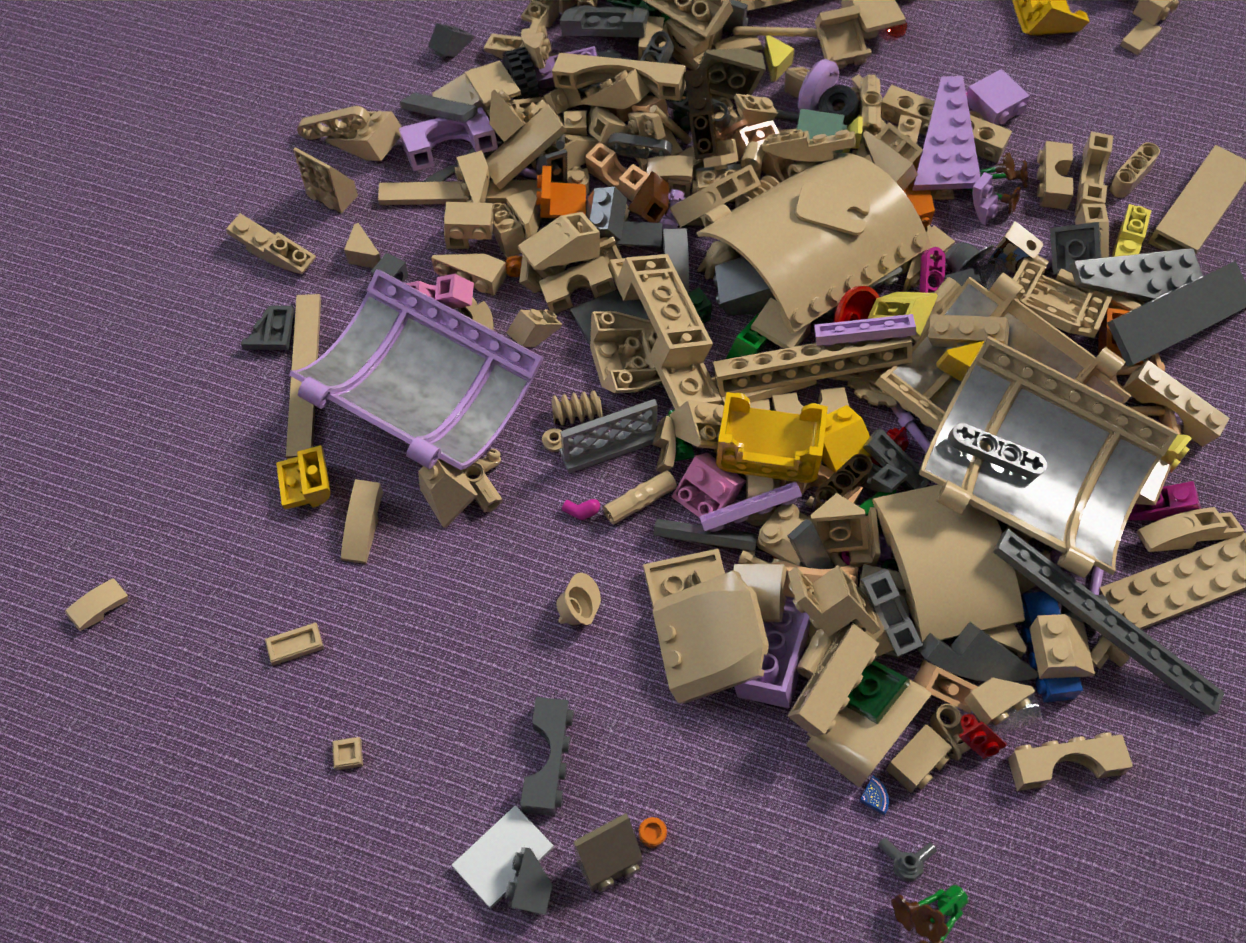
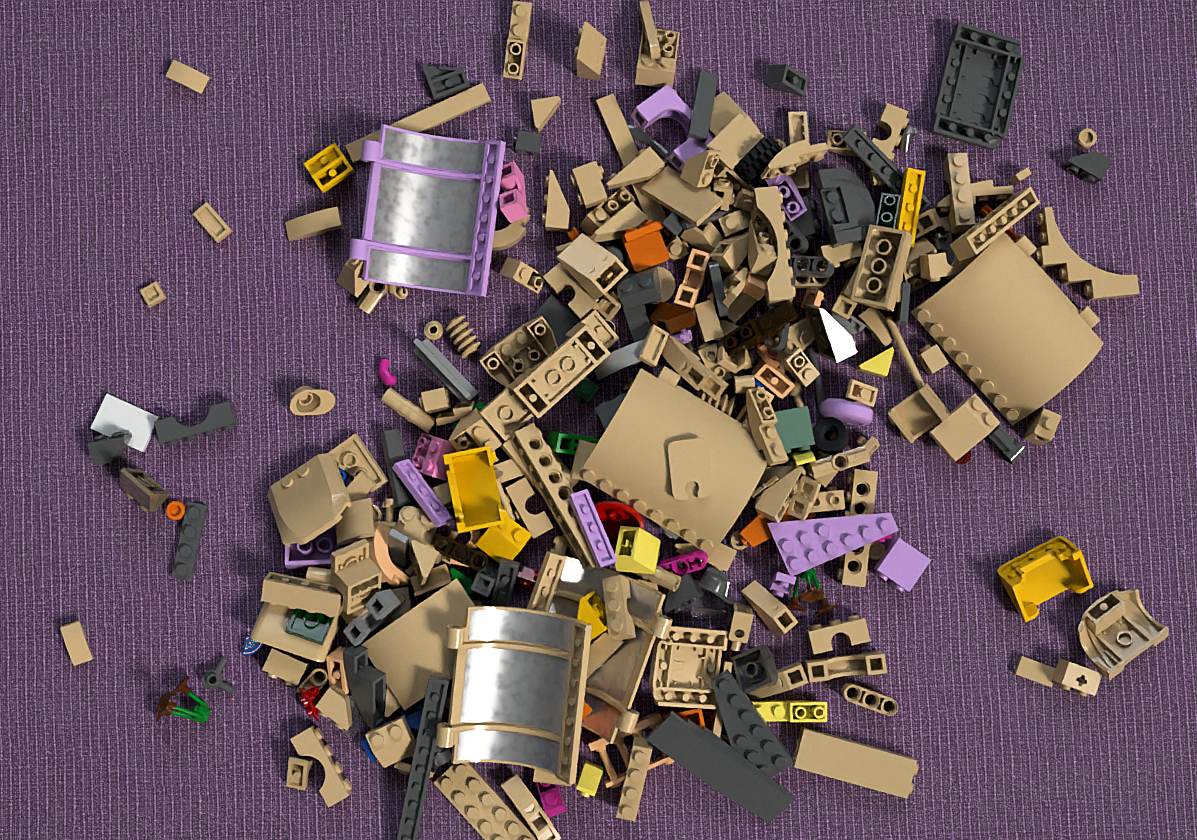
camera: 65 degrees right, 25 degrees up
(642, 456) = (435, 400): none -> tan brick
(671, 125) = (752, 301): tan bar -> none
(675, 222) = (653, 346): none -> tan tile
(702, 829) = (189, 541): none -> dark grey plate
(791, 14) = (932, 358): none -> tan brick
(996, 455) = (515, 657): dark grey beam -> none
(1024, 210) = (769, 608): none -> tan slope
(1073, 793) = (298, 772): none -> tan slope

